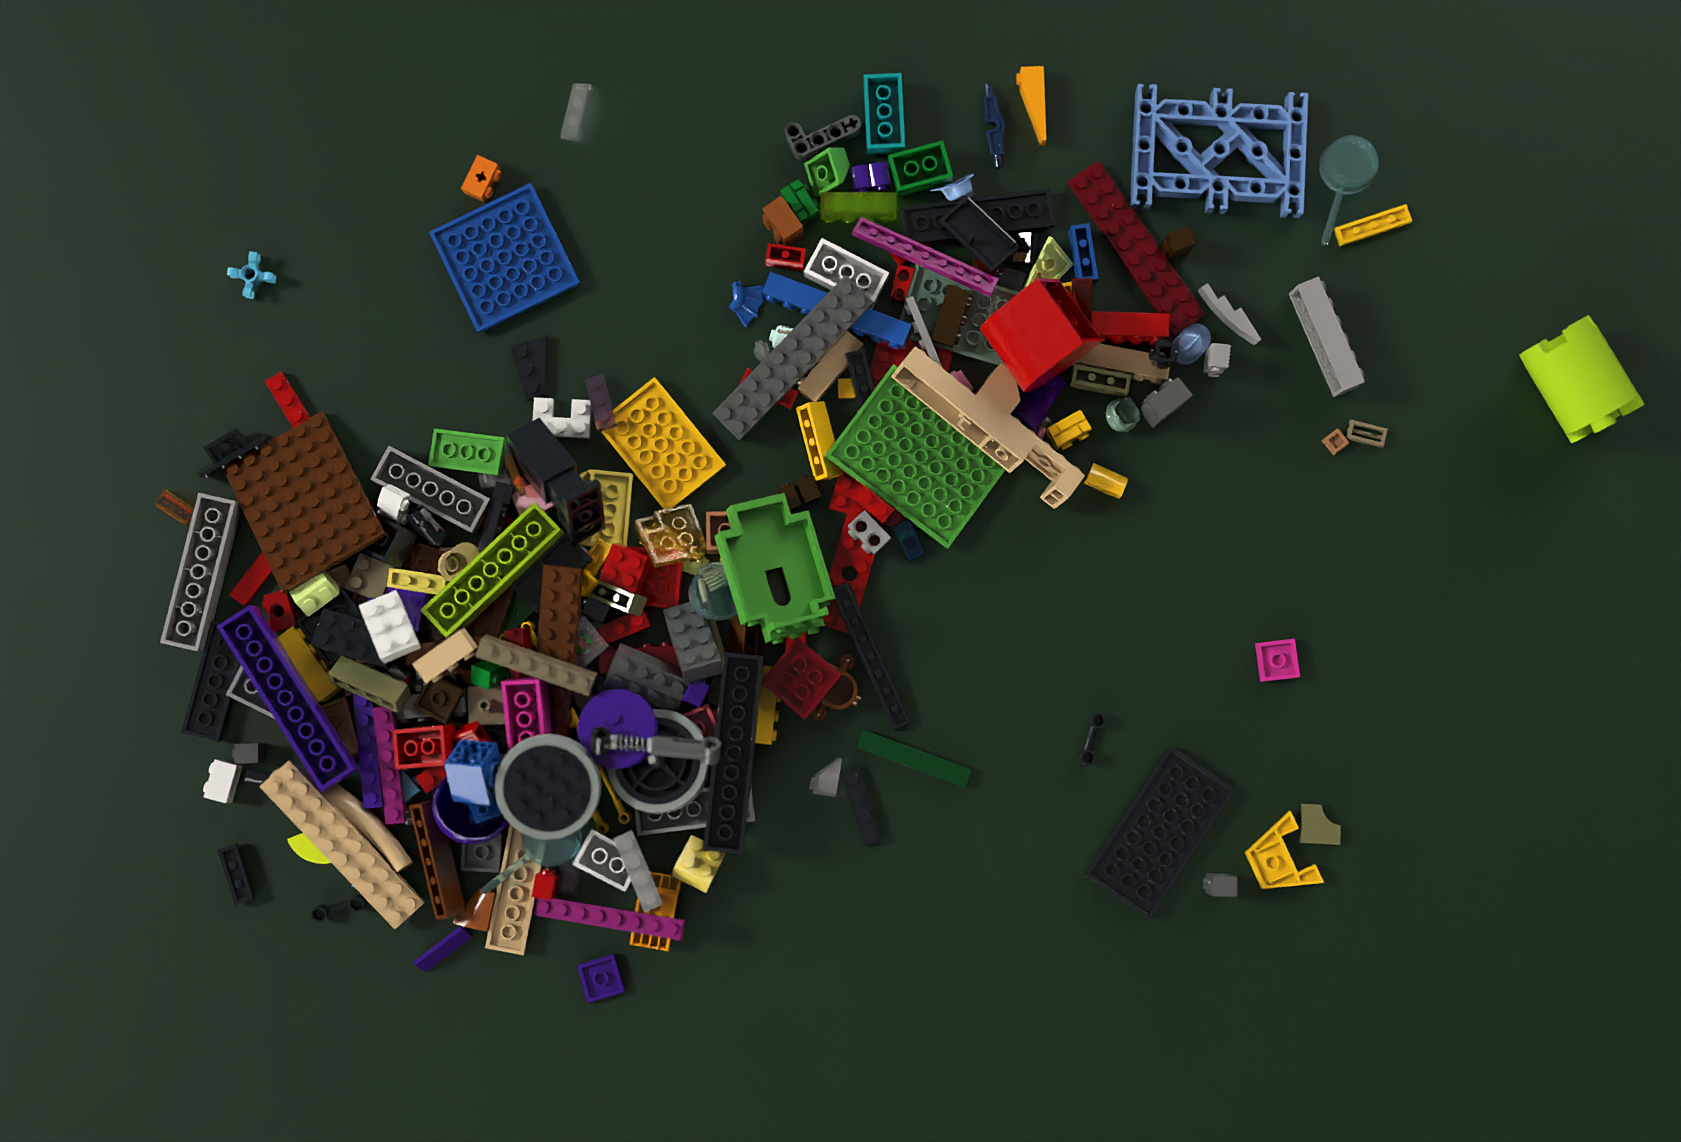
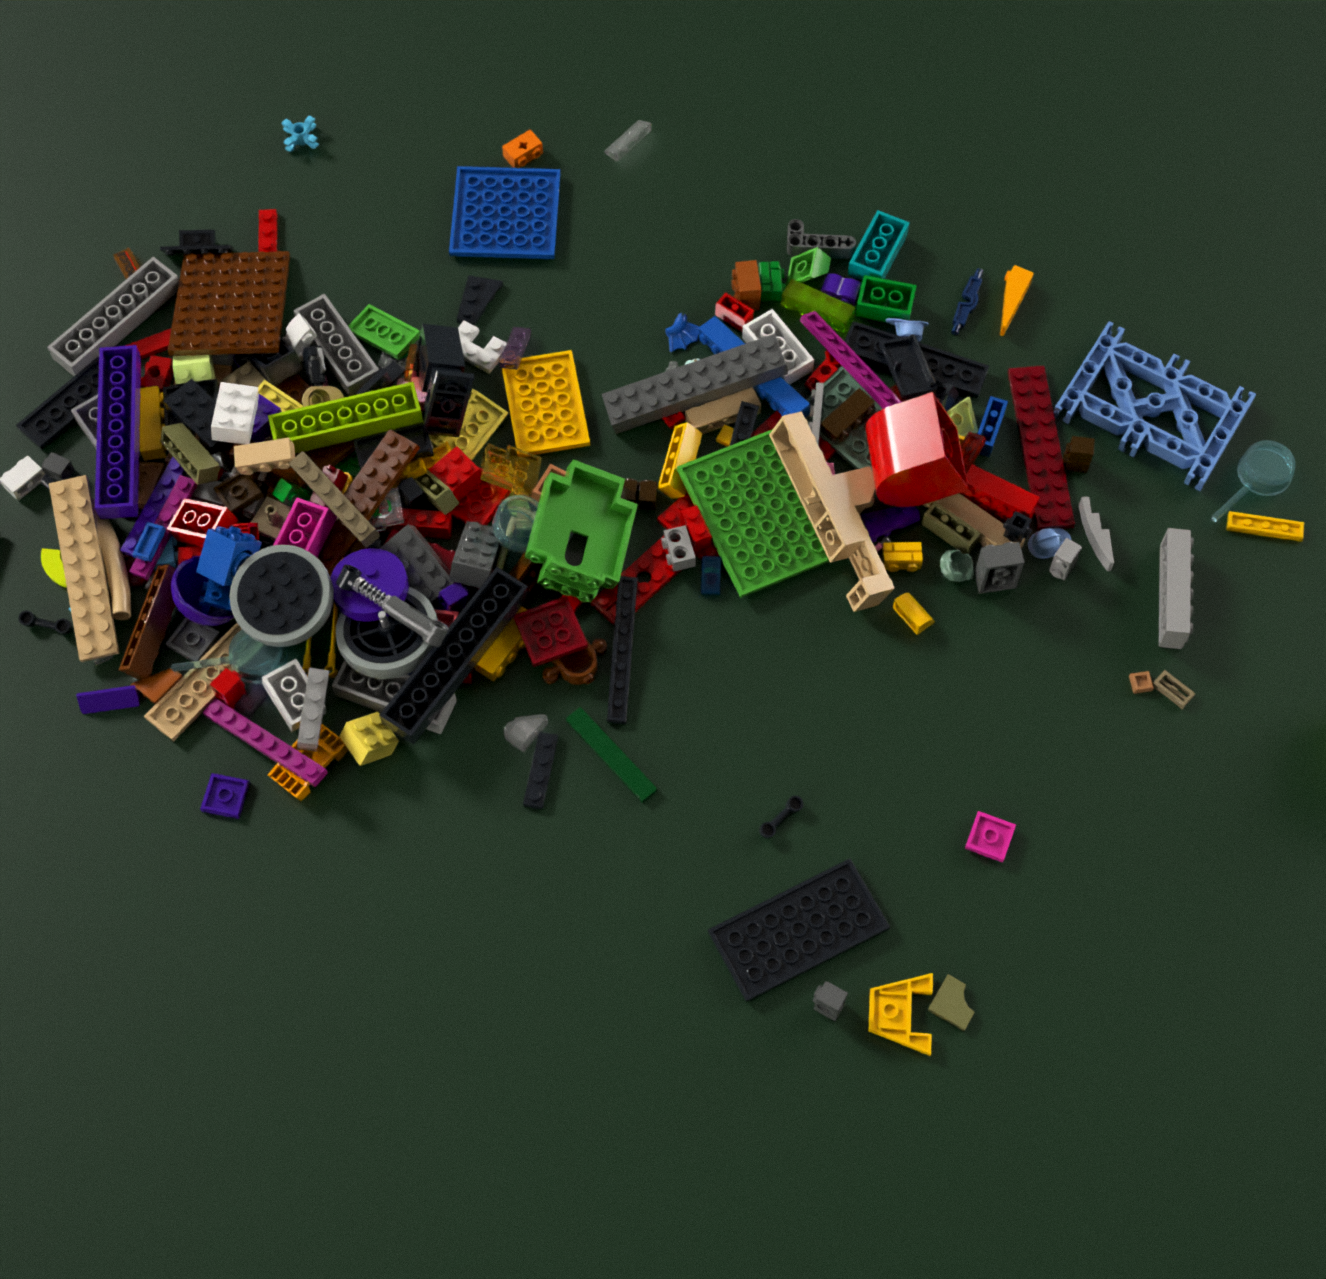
camera: 25 degrees right, 20 degrees down
(388, 790) = (149, 542): none -> blue tile

